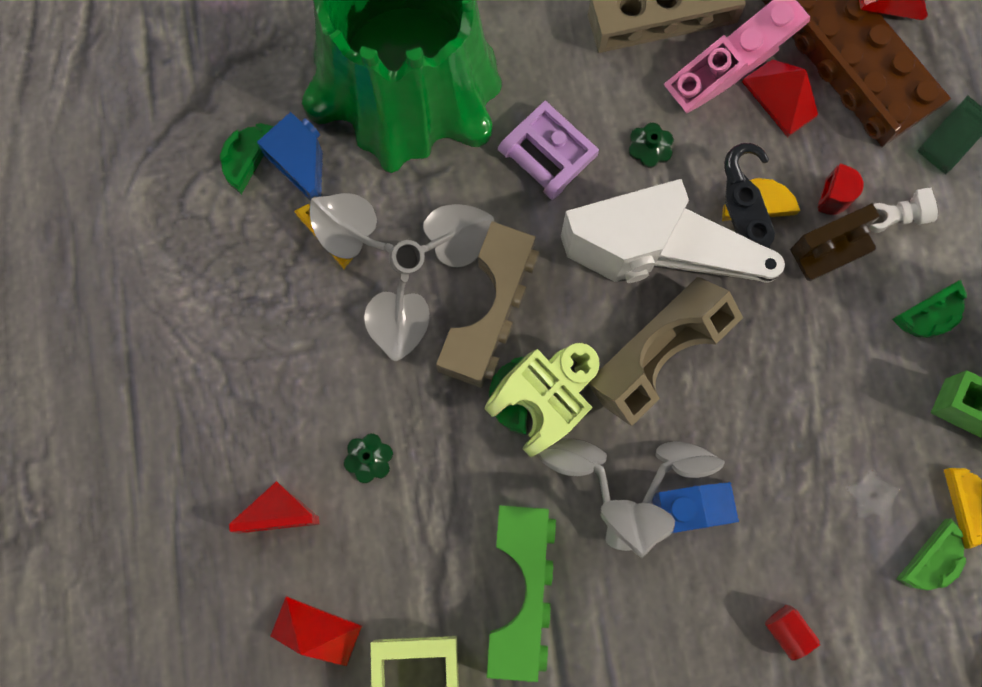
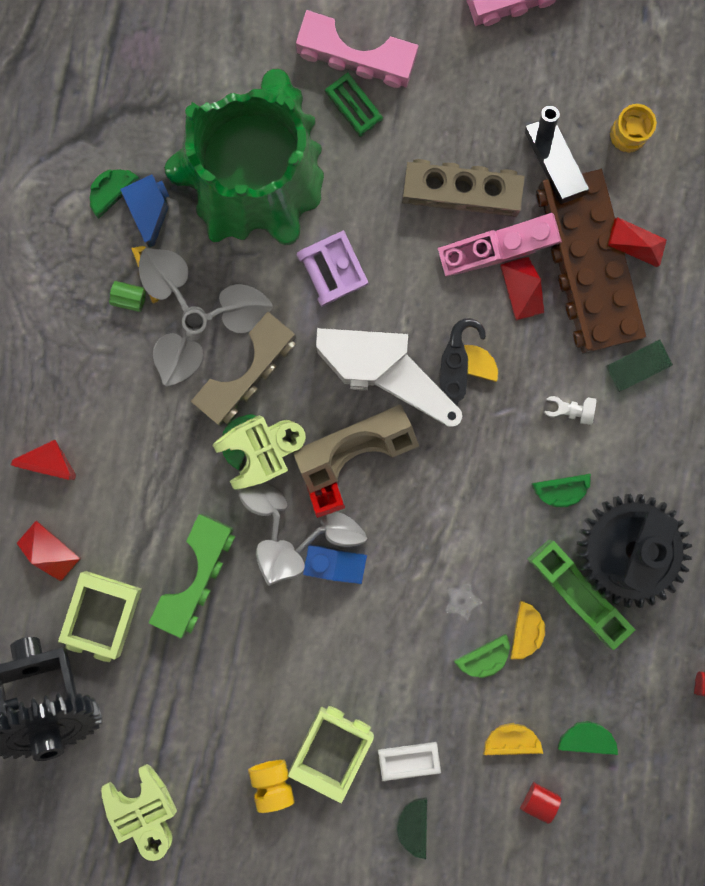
camera: 15 degrees right, 10 degrees up
(309, 269) = (127, 296): none -> bright green piece
(376, 465) = (131, 447): dark green plant -> none
(649, 150) = (409, 297): dark green plant -> none
(654, 428) = (326, 500): none -> red slope
(792, 632) = (365, 668): red brick -> none
(836, 243) = (510, 417): dark brown bracket -> none
(840, 190) = (532, 377): red brick -> none

